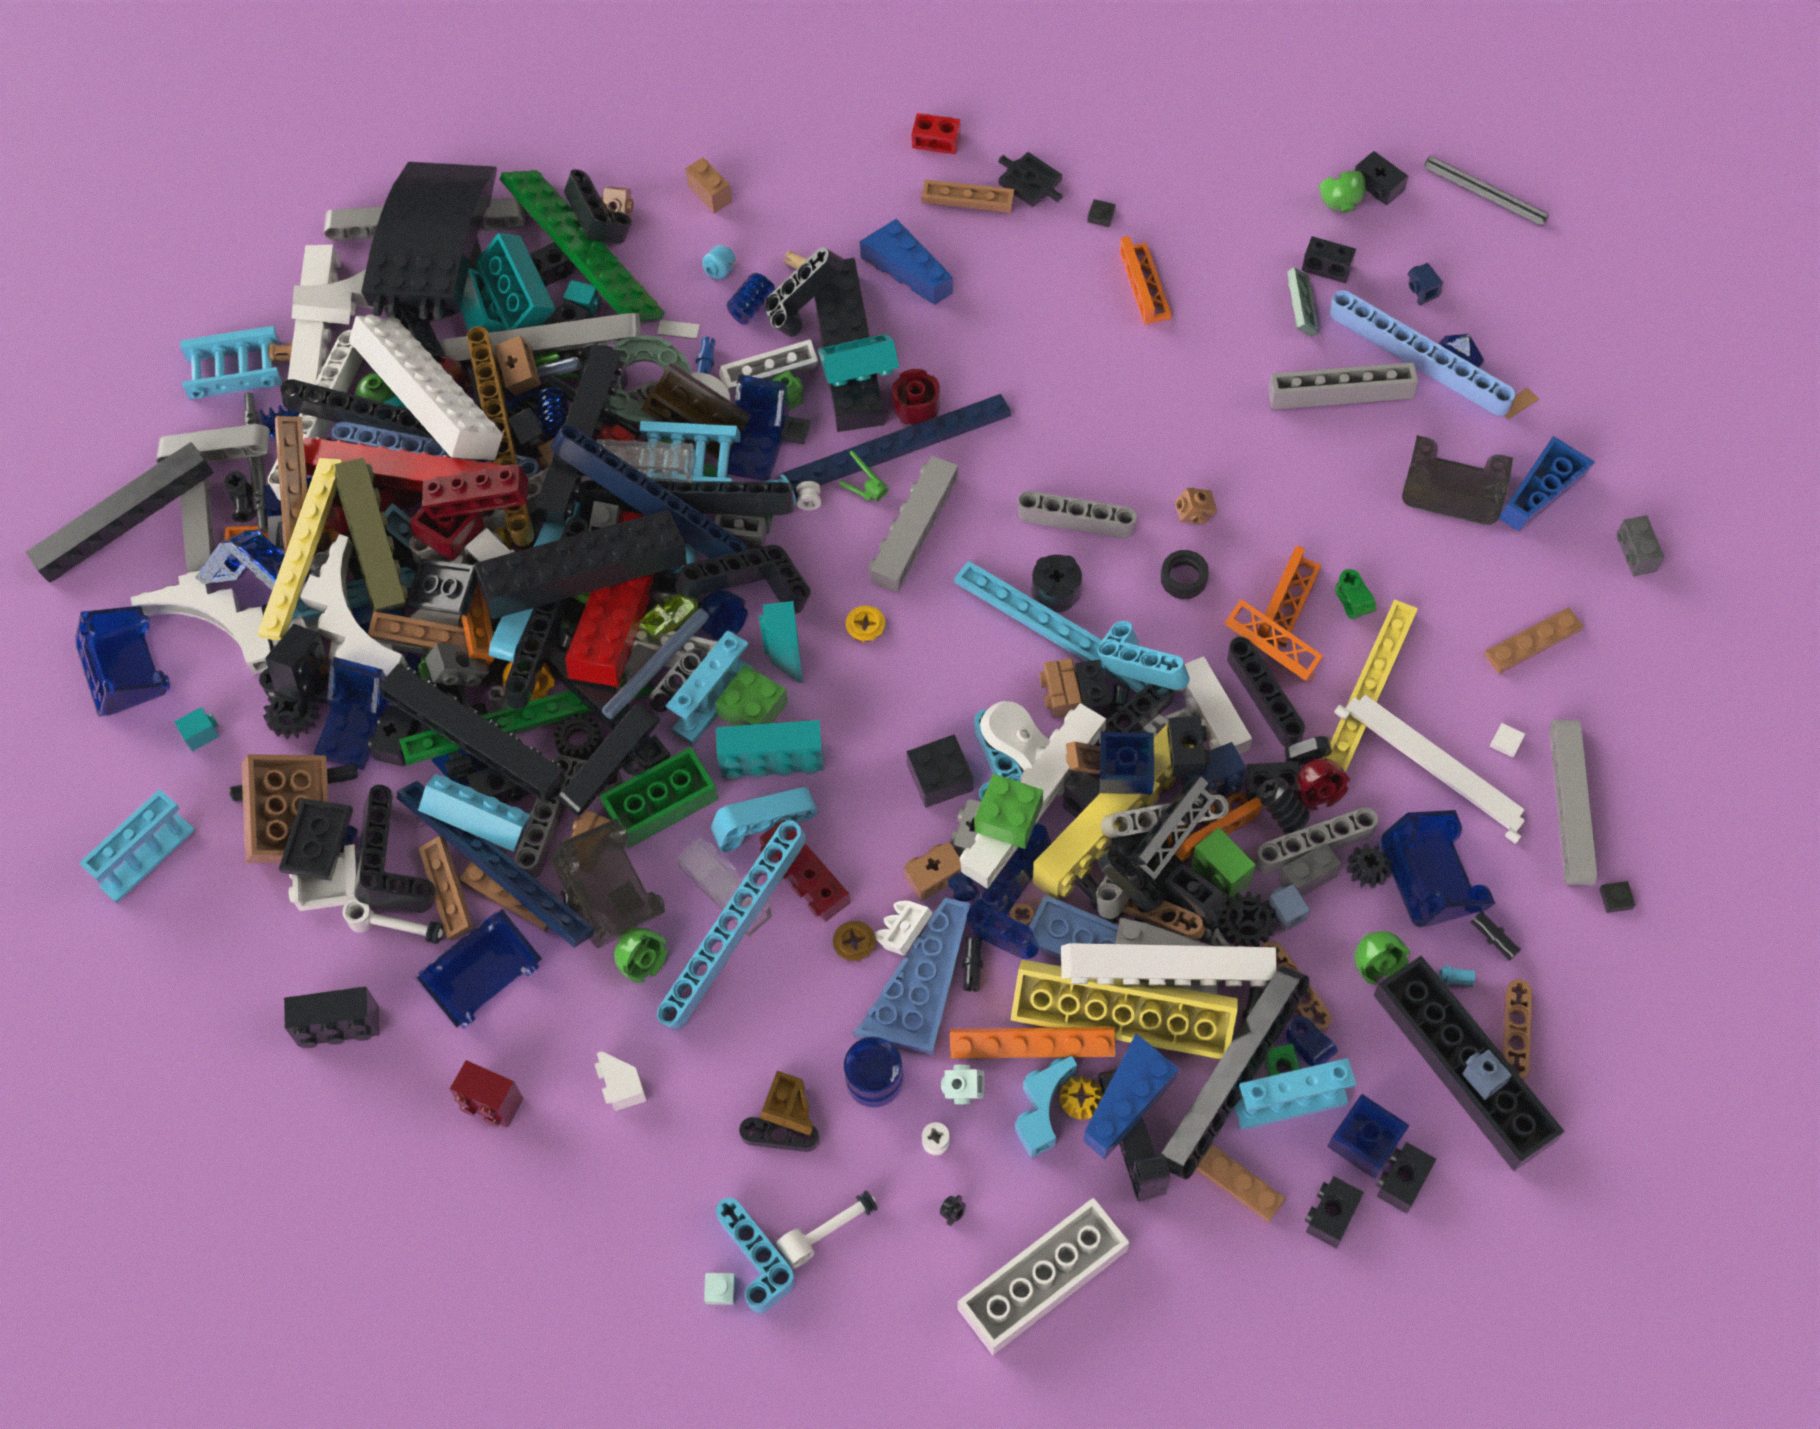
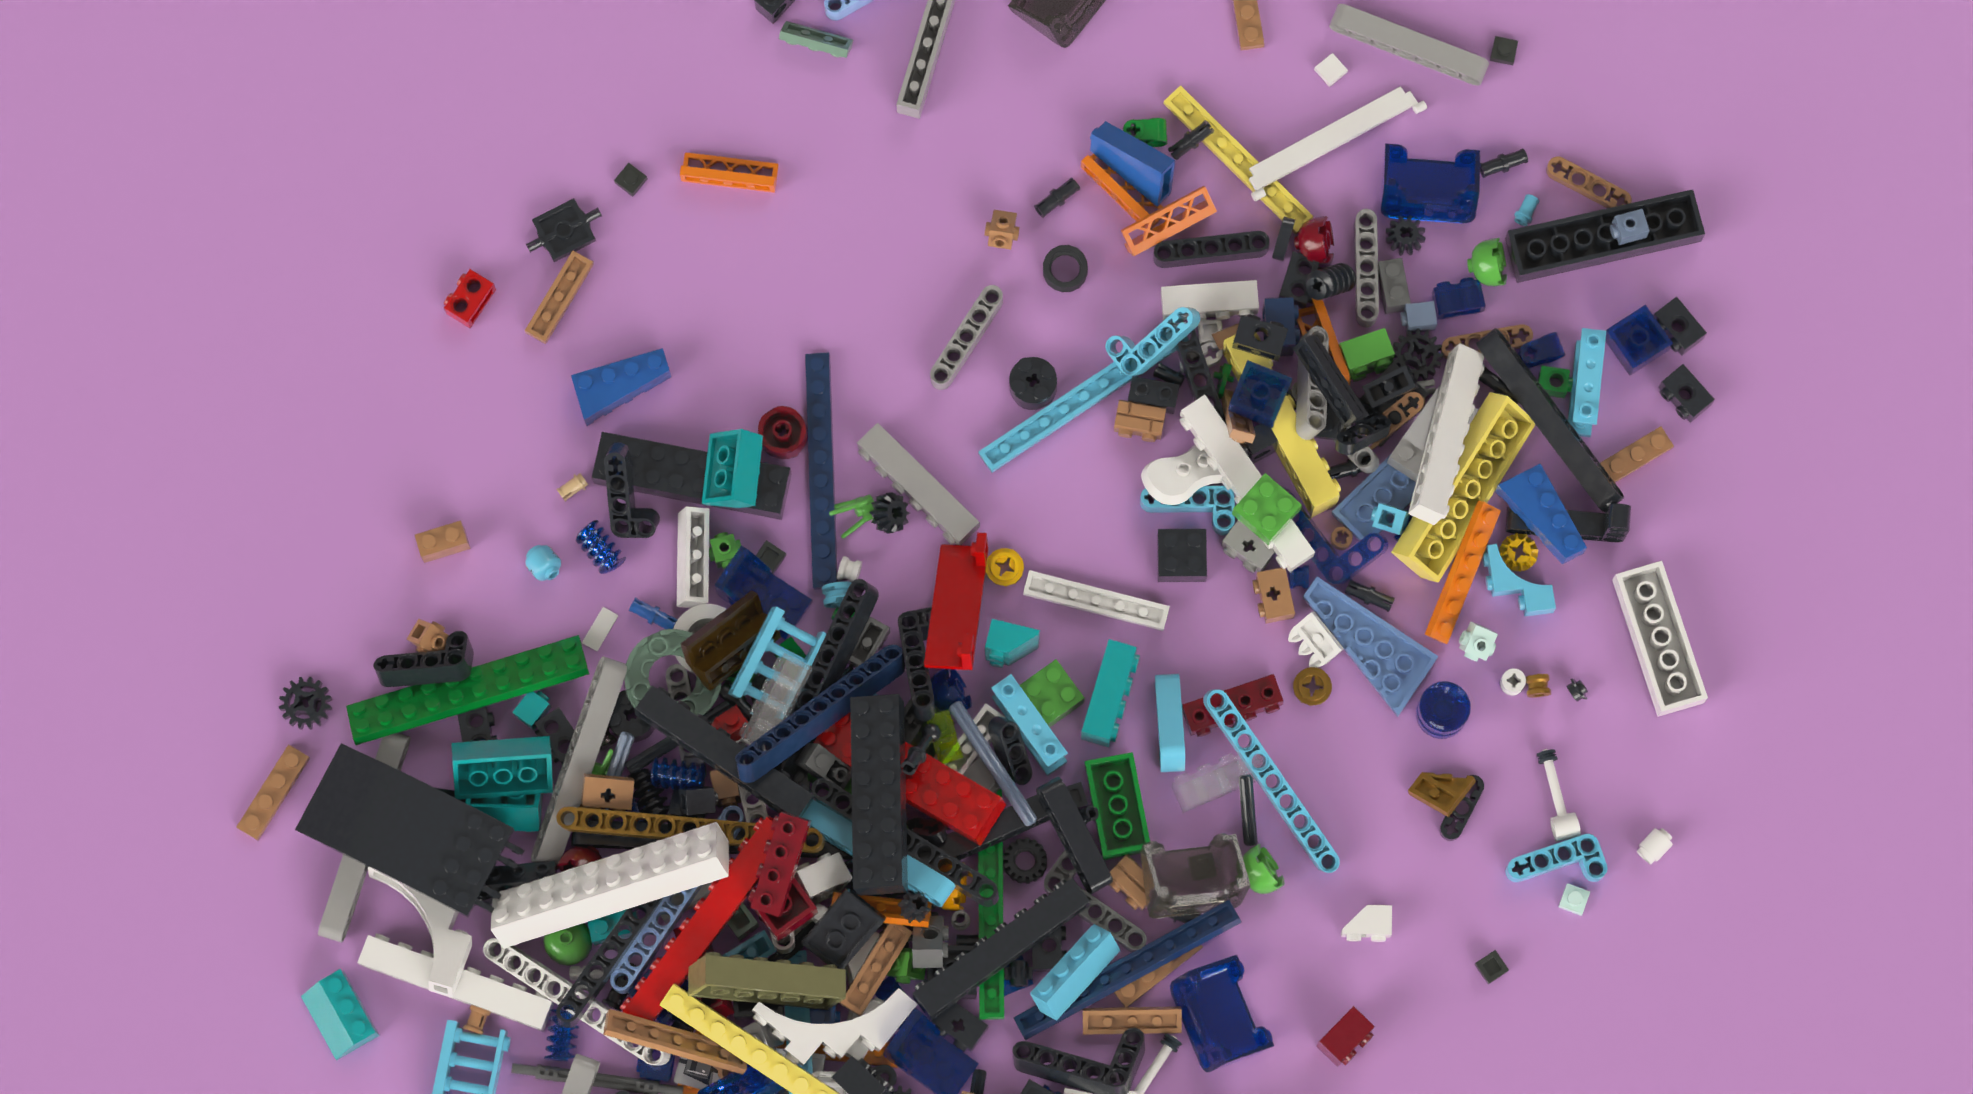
camera: 70 degrees left, 15 degrees up
(262, 256) = (339, 1014): none -> teal slope
(443, 148) = (273, 792): none -> medium nougat plate
(484, 626) = (914, 907): none -> black gear
(528, 140) = (313, 699): none -> black gear
(613, 1224) = (1491, 967): none -> pearl dark grey plate
(665, 599) = (917, 754): none -> black pin
(696, 919) = (1248, 810): none -> black axle
(805, 584) = (957, 605): none -> red bracket
(808, 1355) = (1655, 845): none -> white brick
(863, 713) = (1096, 600): none -> white plate
(883, 501) = (889, 513): none -> black gear
(941, 1165) = (1538, 685): none -> pearl gold wheel
(1051, 944) = (1380, 520): none -> medium azure brick
(1251, 544) = (1057, 197): none -> black pin
(1318, 592) = (1134, 161): none -> blue slope
(1326, 940) = (1458, 299): none -> clear blue brick
(1367, 635) = (1191, 140): none -> black pin

